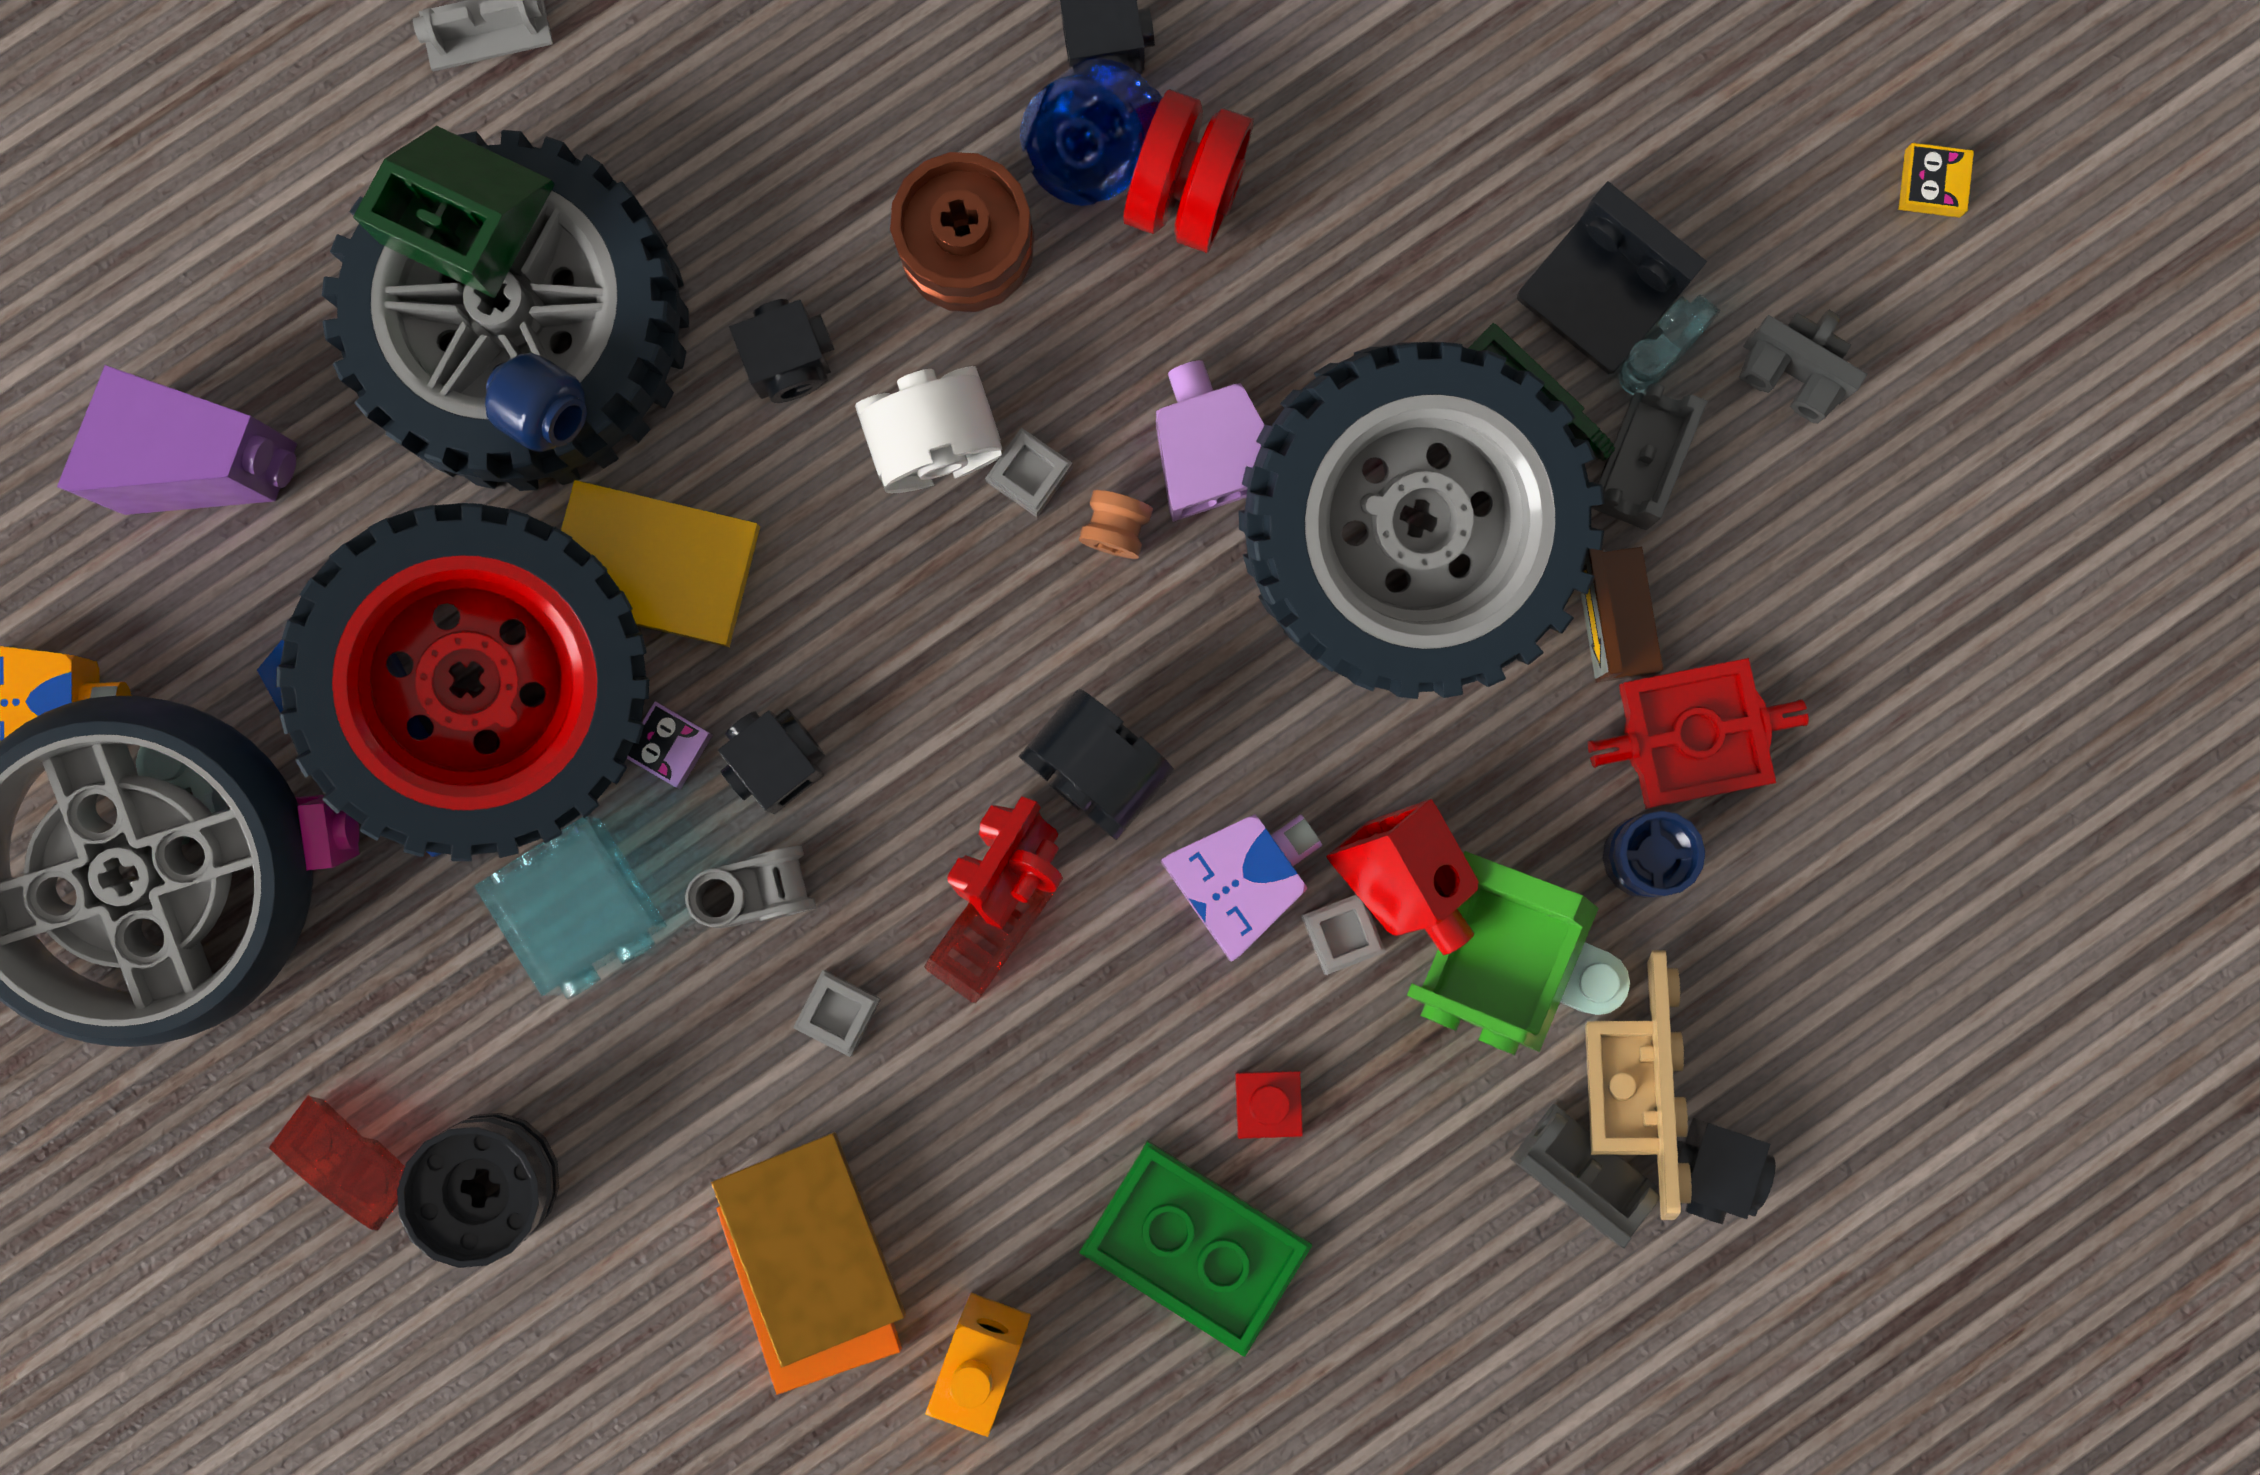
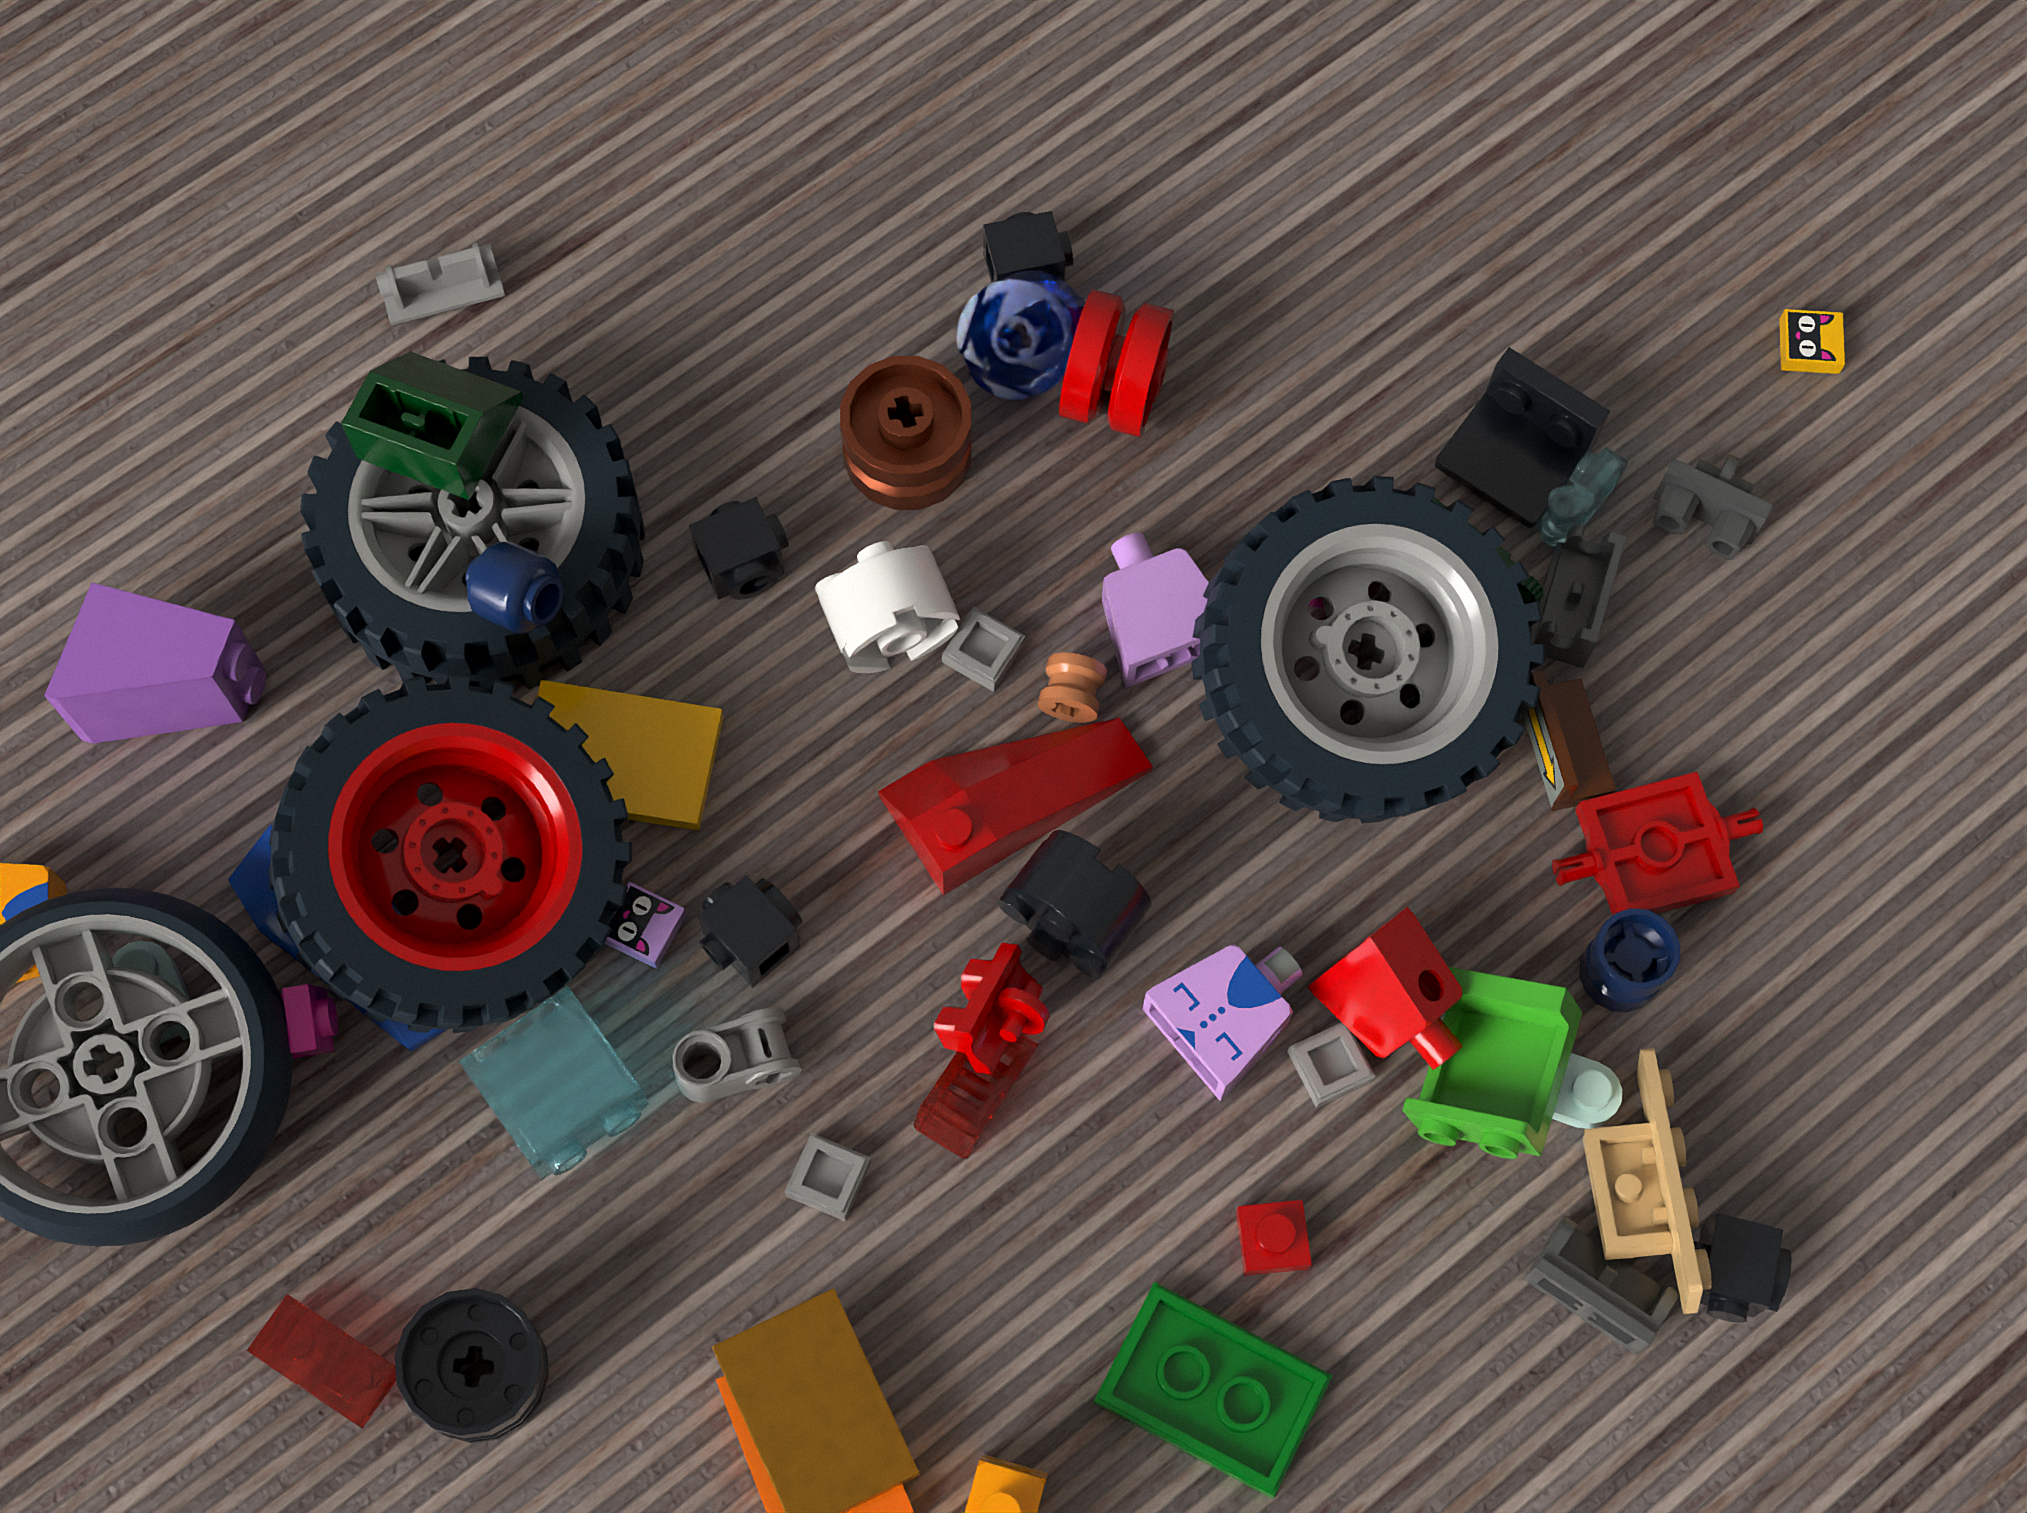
camera: 10 degrees left, 15 degrees down
(1031, 634) = (995, 800): none -> red wedge

